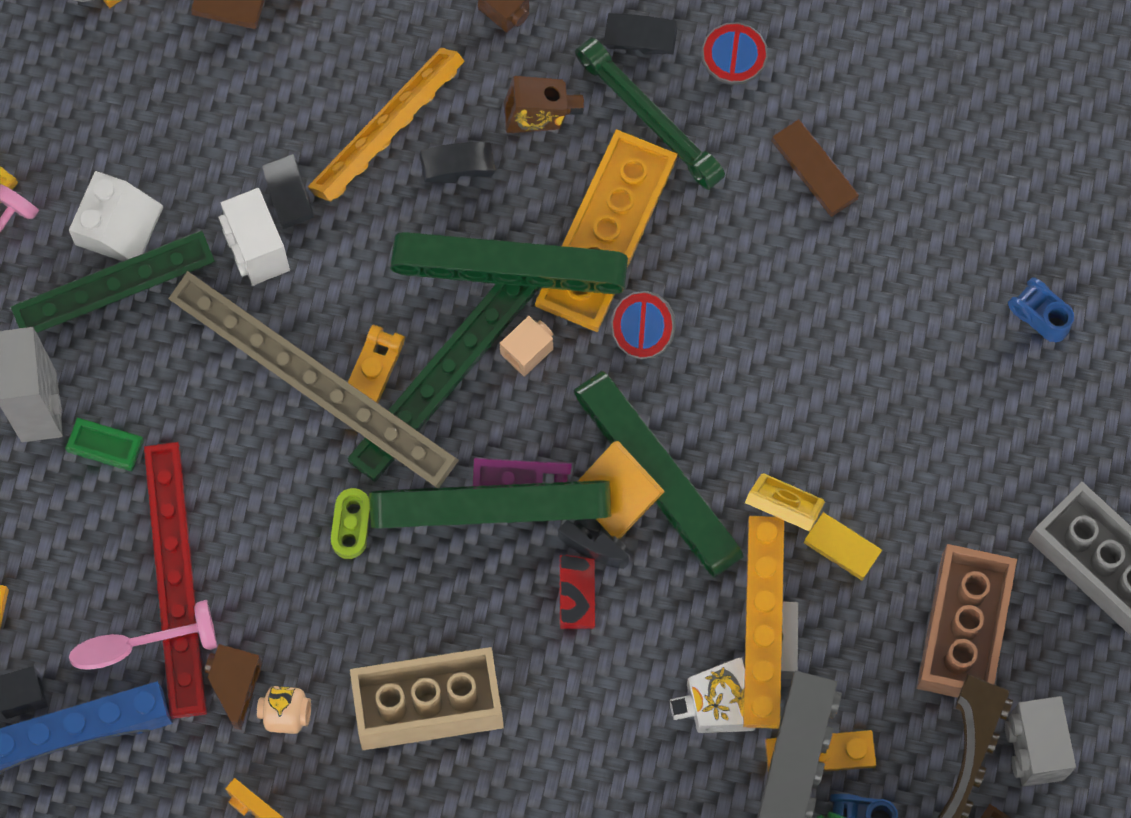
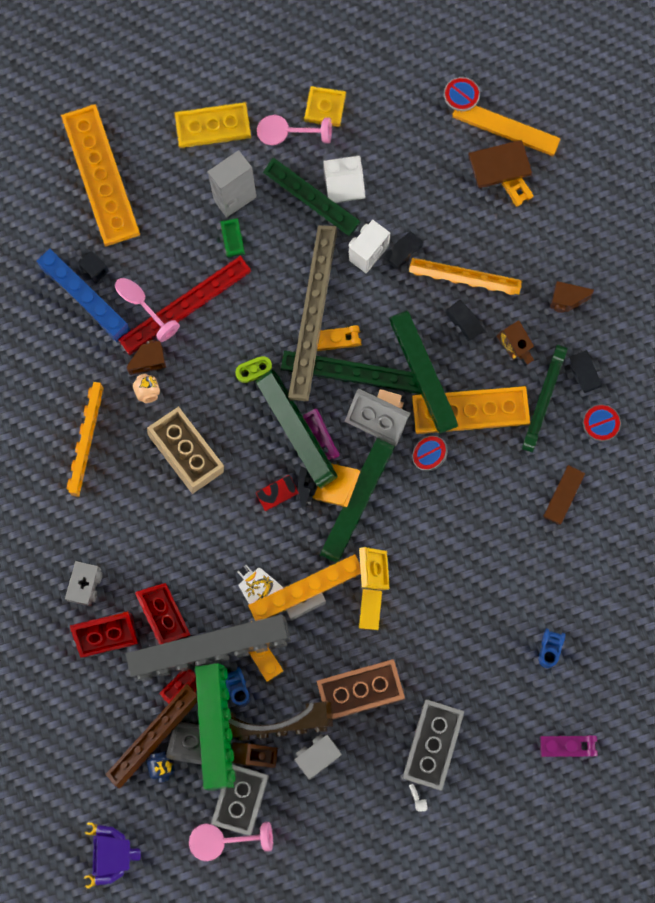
camera: 65 degrees right, 5 degrees up
(542, 371) = (377, 417): none -> light grey tile

